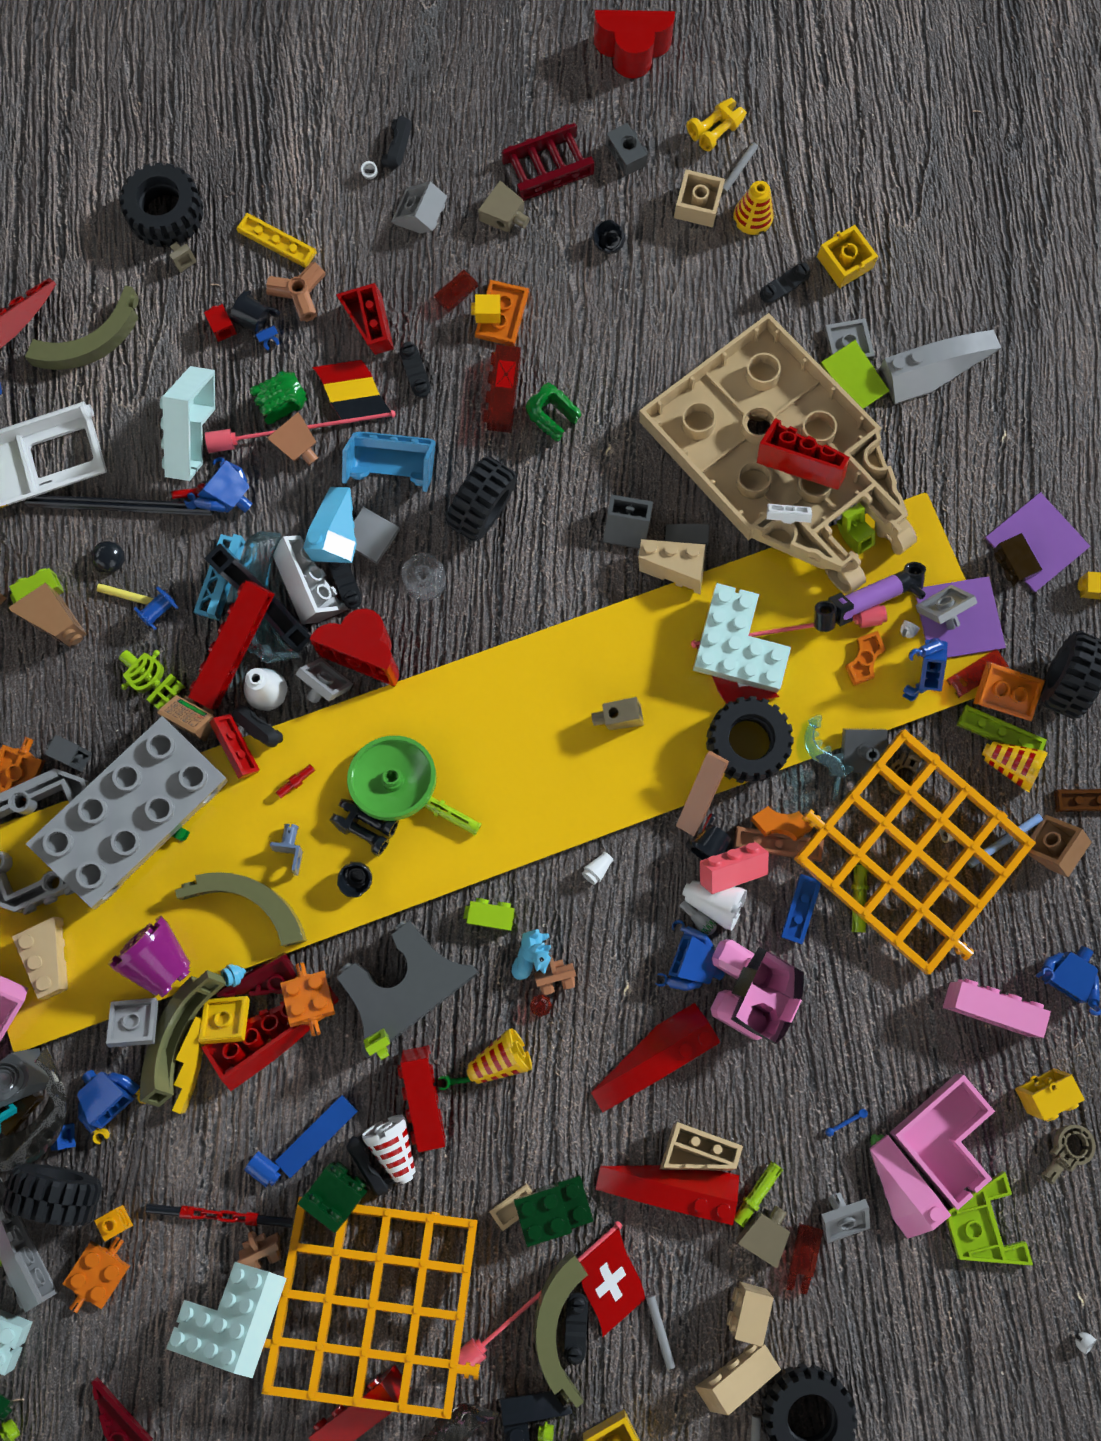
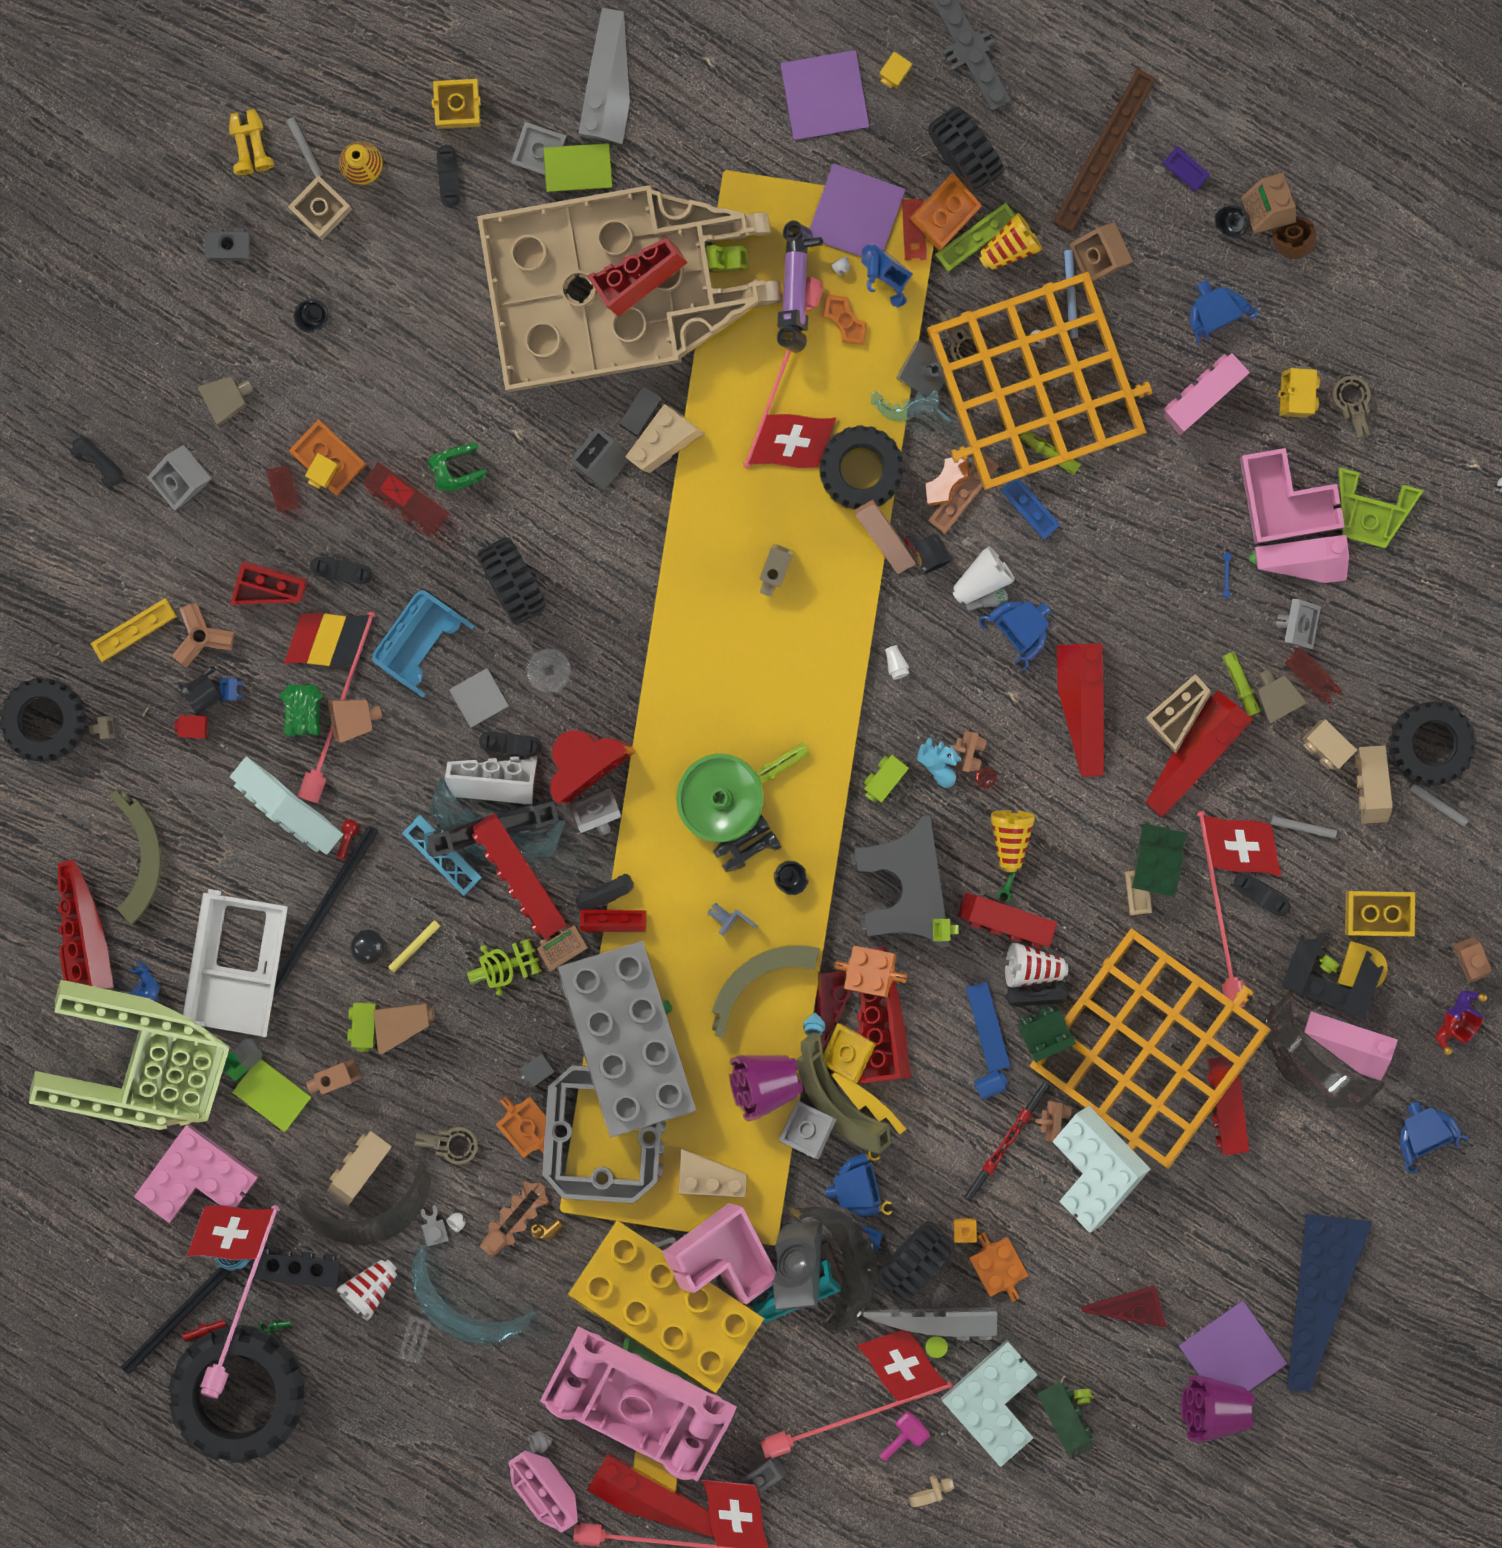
camera: 55 degrees left, 10 degrees up
(156, 608) = (443, 926): blue hose -> none
(222, 490) = (364, 807): torso -> none
(265, 688) = (582, 866): white cone -> none
(295, 781) = (673, 884): red bar -> none
(332, 529) = (460, 729): medium azure wedge -> none
(370, 167) = (116, 505): white hinge -> none
(548, 180) = (216, 341): dark red fence -> none
(551, 1300) = (1229, 903): olive arch -> none
(633, 38) = (119, 175): red brick -> none
(730, 652) = (770, 439): light aqua piece -> none
(734, 867) = (963, 546): coral brick -> none
(762, 987) = (1076, 583): bright pink piece -> none
(789, 513) = (684, 318): white plate -> none
(946, 606) = (840, 222): light grey tile -> none
(1017, 559) = (832, 128): dark brown brick -> none

